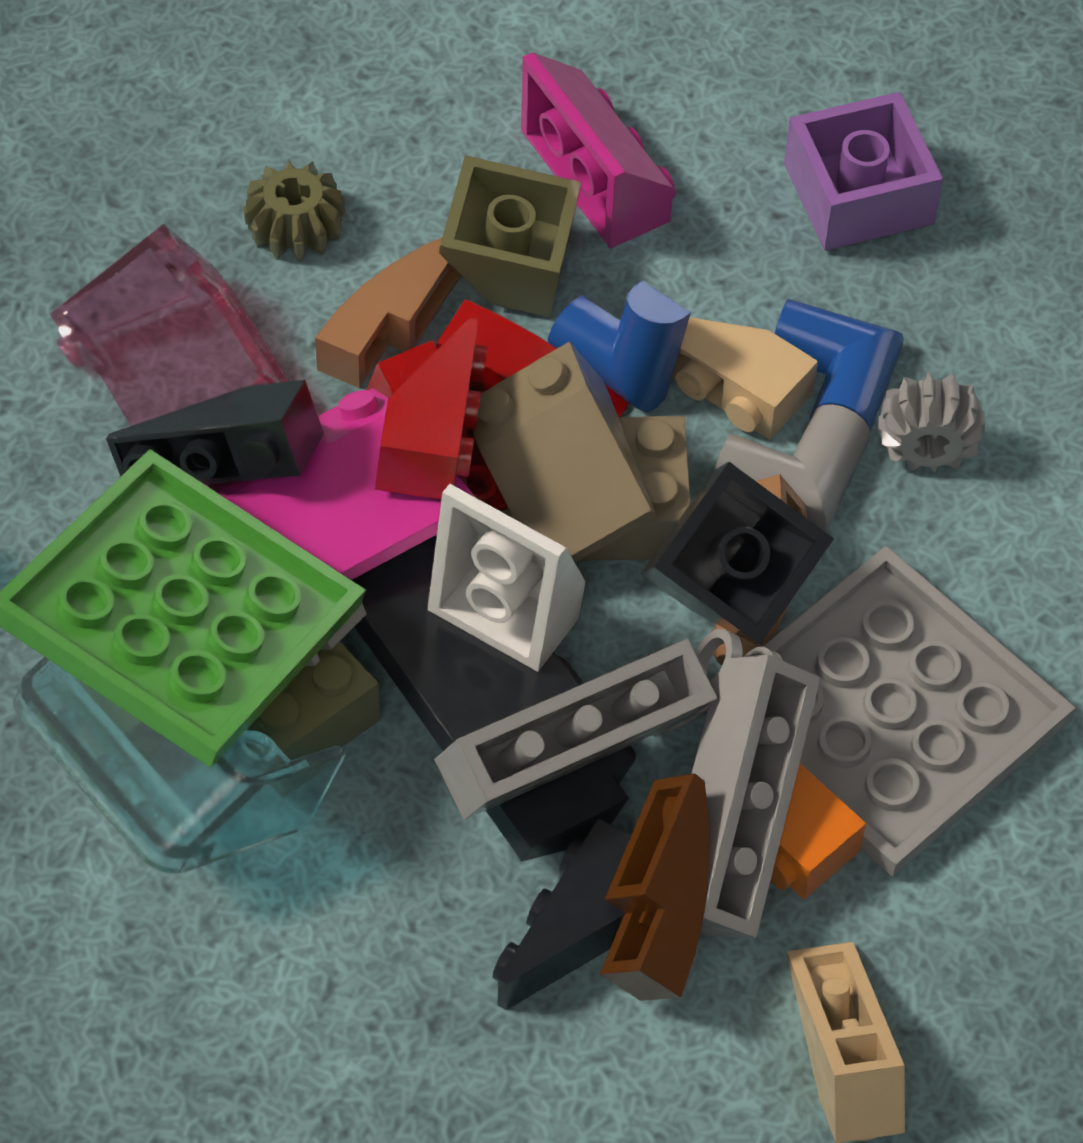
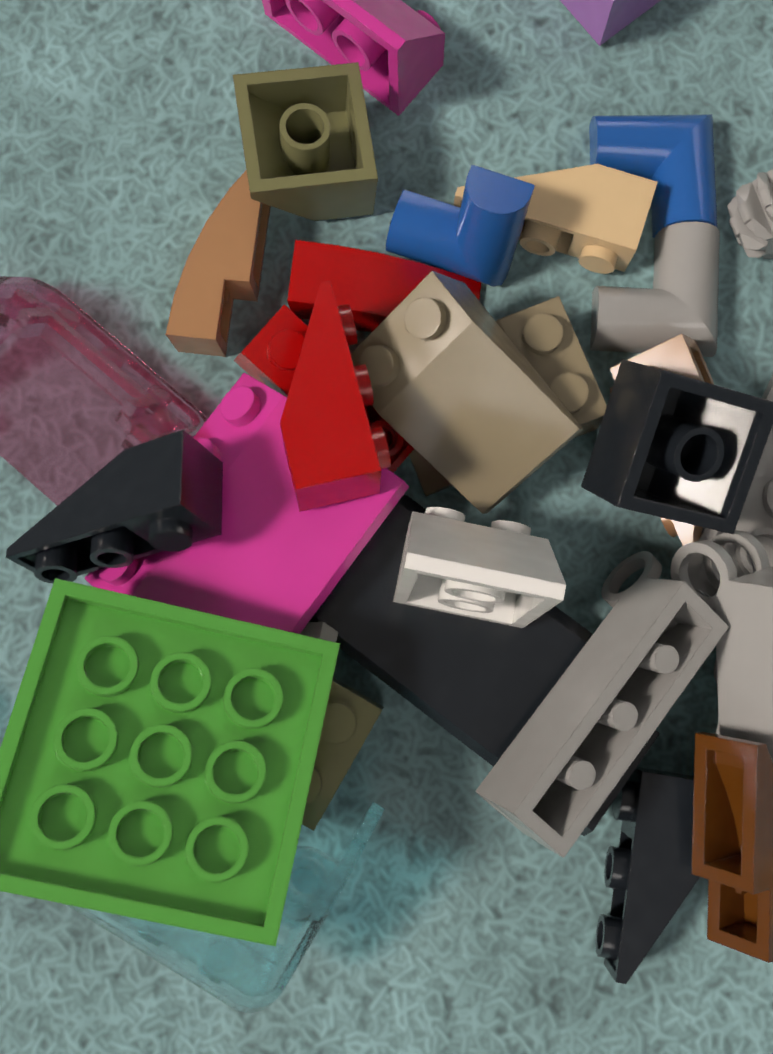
camera: 10 degrees left, 25 degrees up
(294, 209) = (98, 204): olive gear -> none

